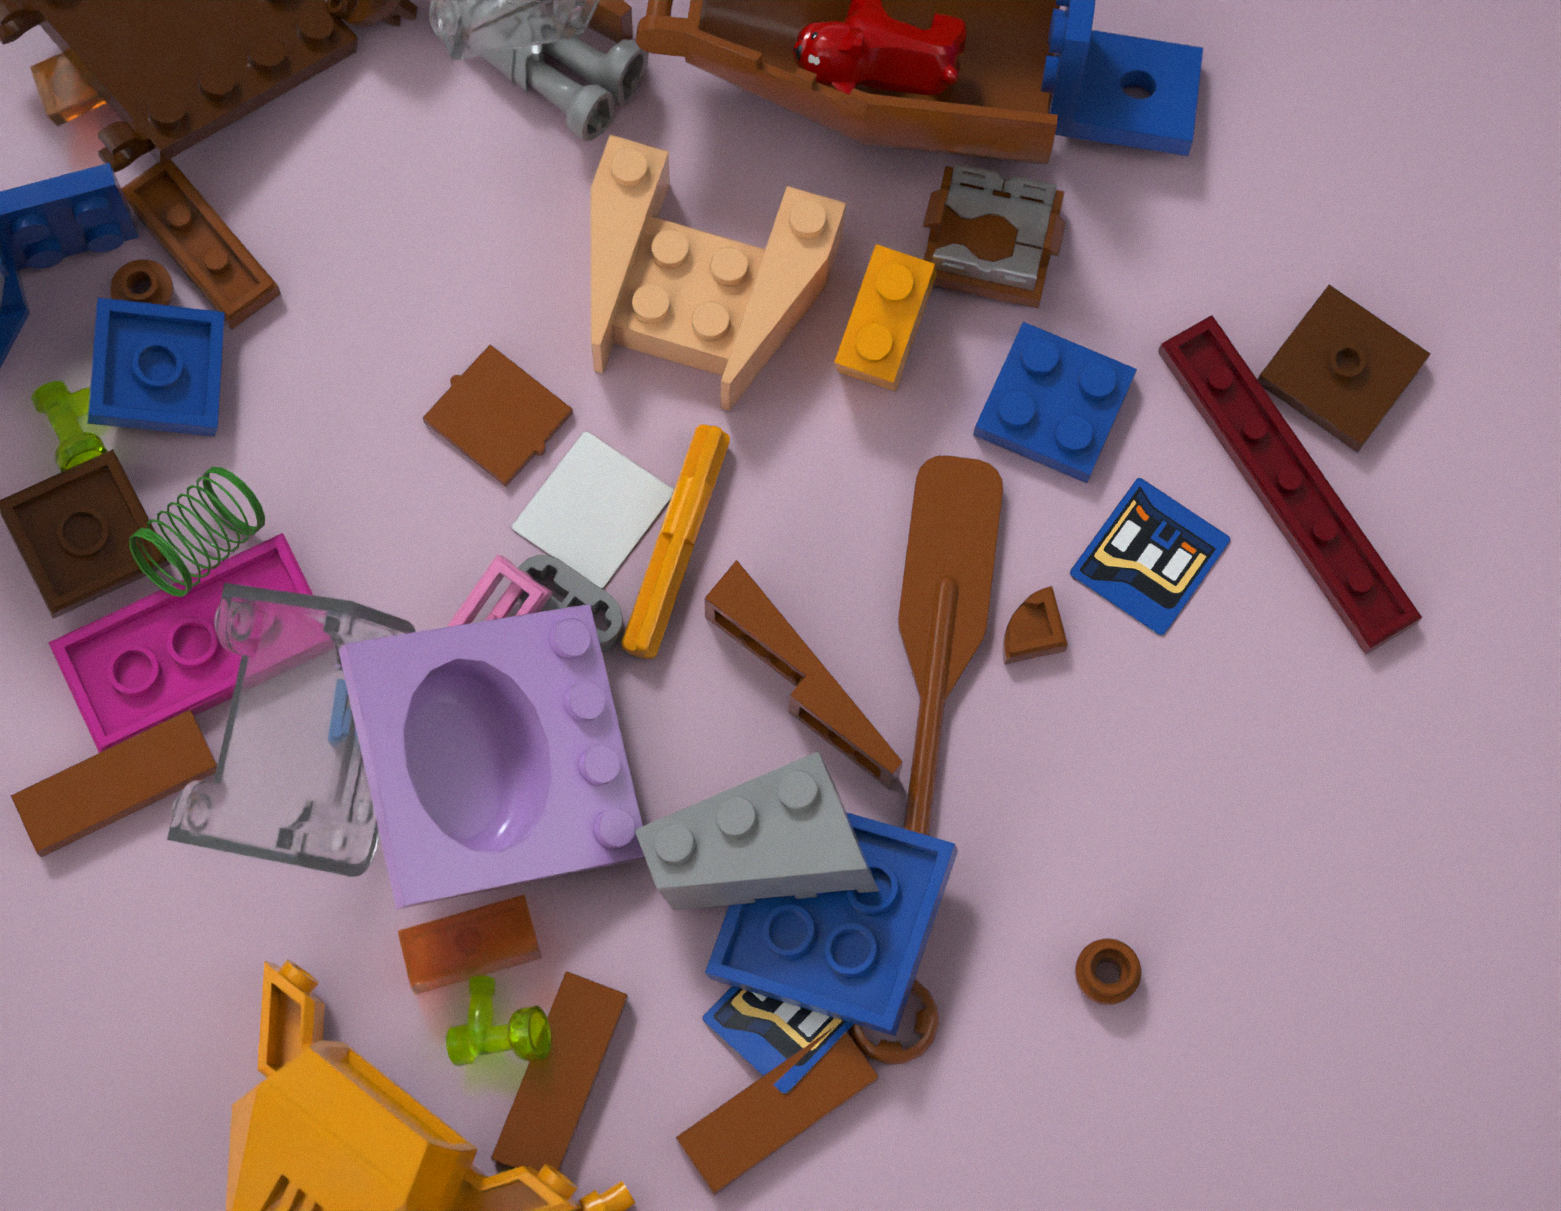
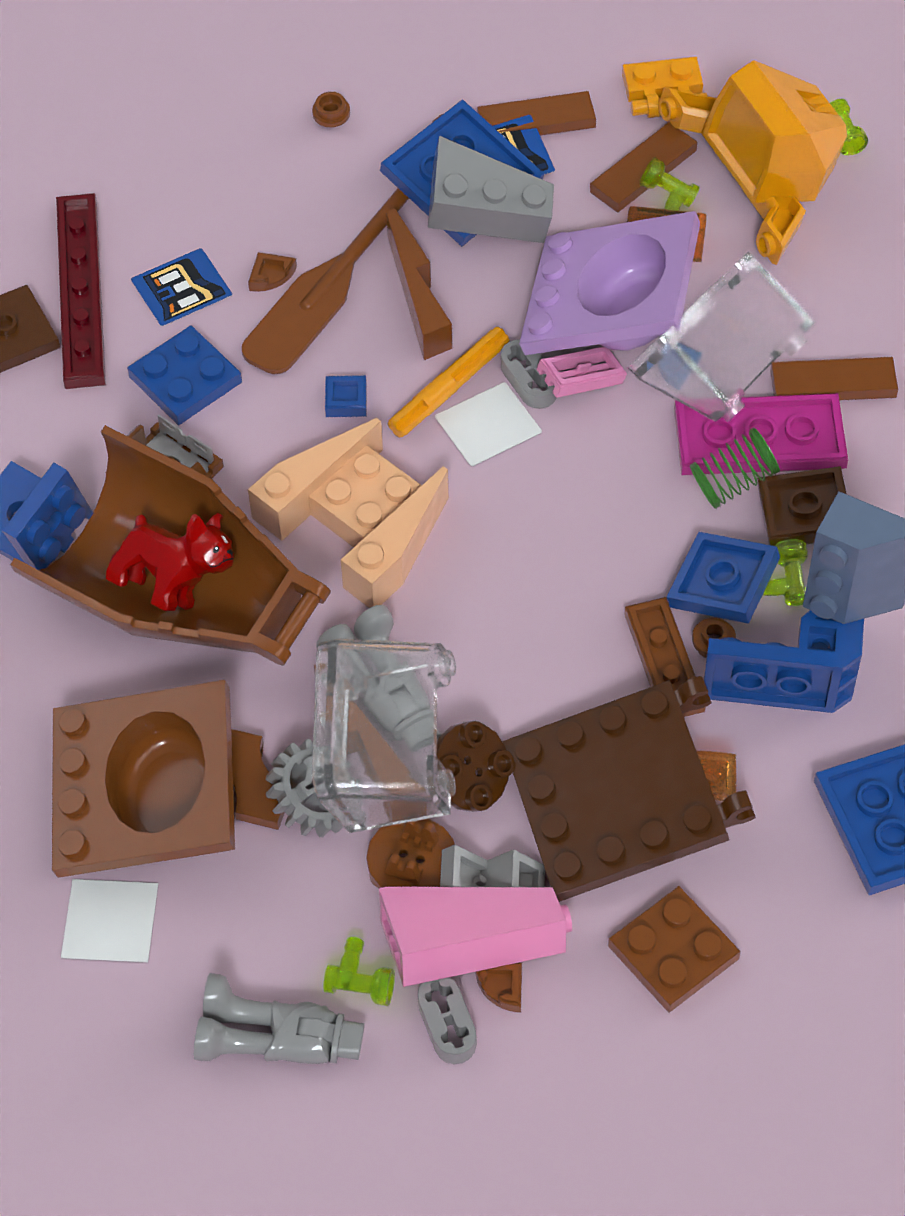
camera: 150 degrees left, 15 degrees down
(498, 415) = (520, 492): dark orange piece -> none
(812, 462) = (346, 396): none -> blue tile
(885, 317) = (260, 431): light orange brick -> none

